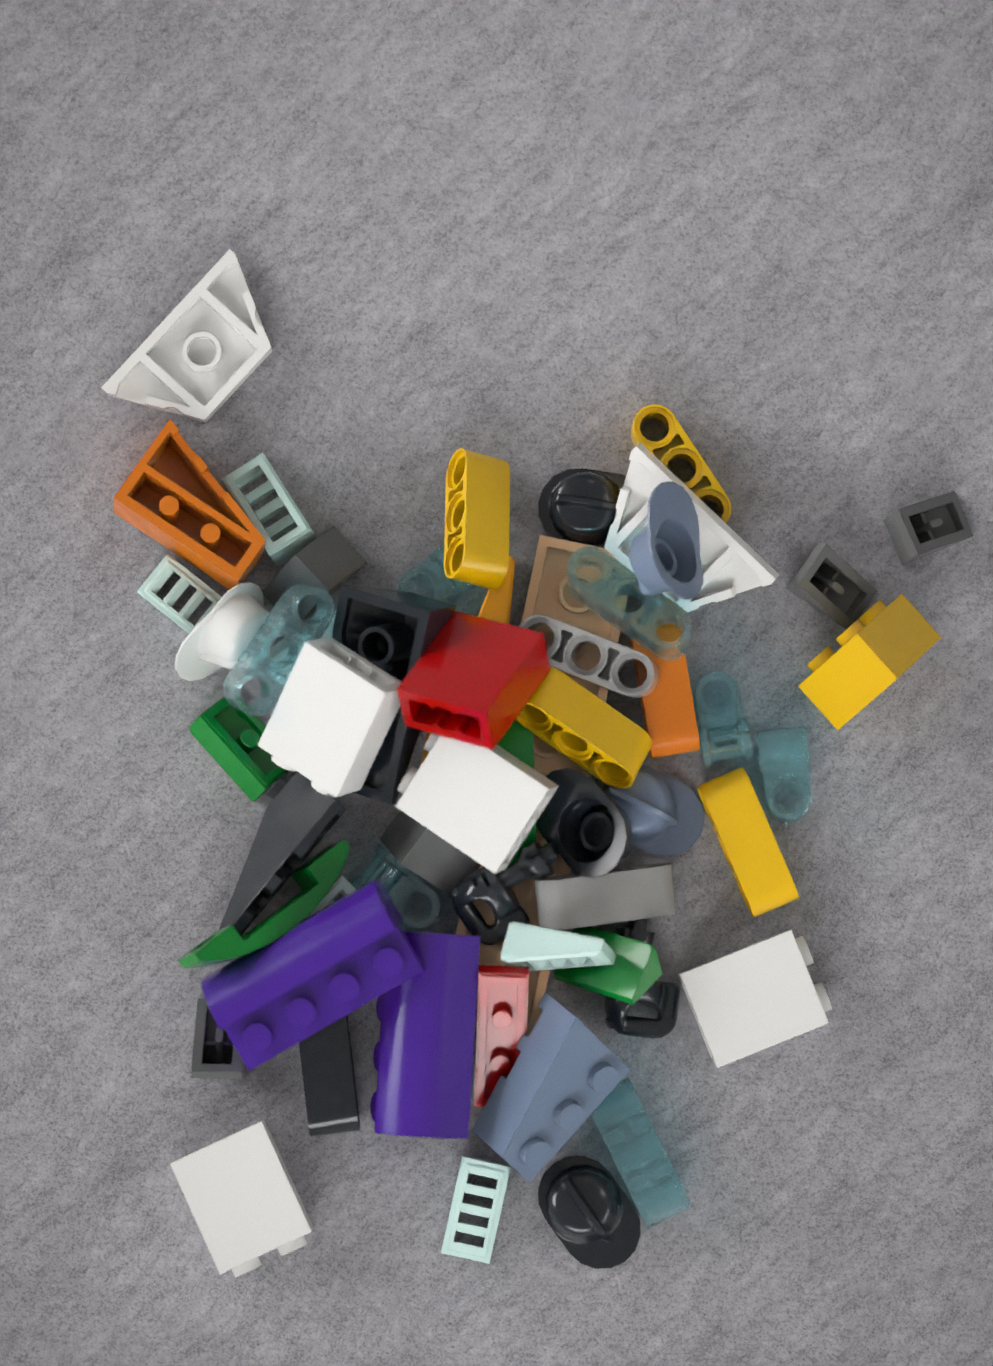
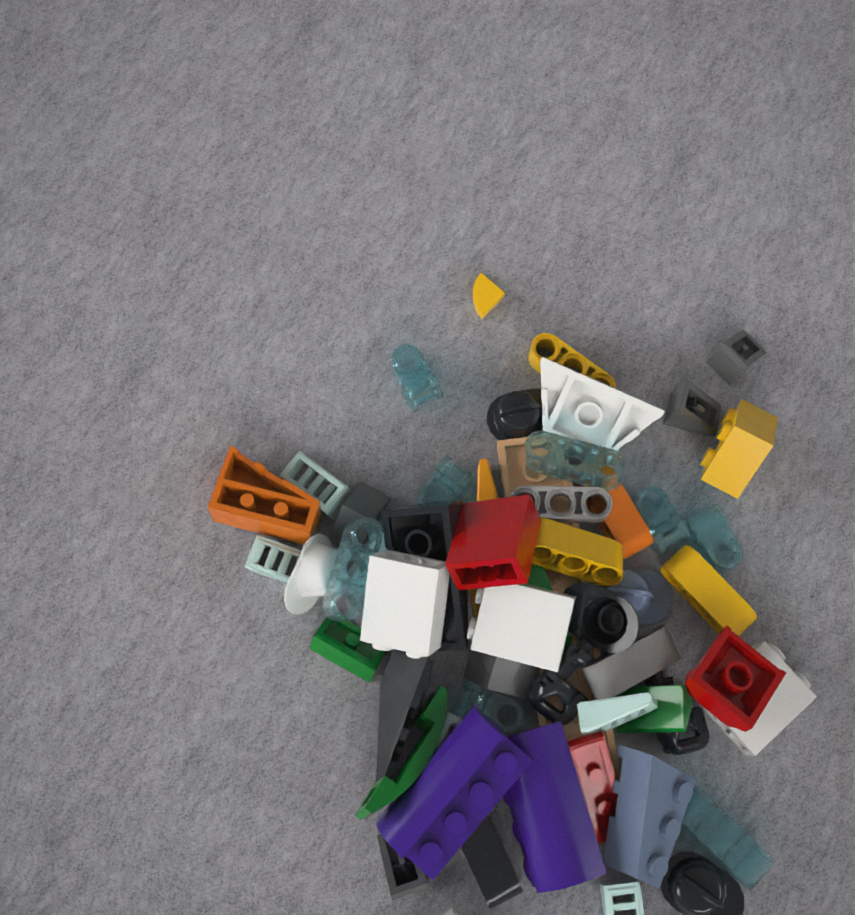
camera: 15 degrees left, 10 degrees down
(198, 349) = (235, 400): white wing -> none
(458, 407) = (418, 382): none -> clear light blue piece
(477, 519) = (454, 443): yellow beam -> none
(603, 313) = (485, 295): none -> yellow tile
(668, 548) = (588, 413): sand blue piece -> none
(722, 962) = (733, 681): none -> red slope

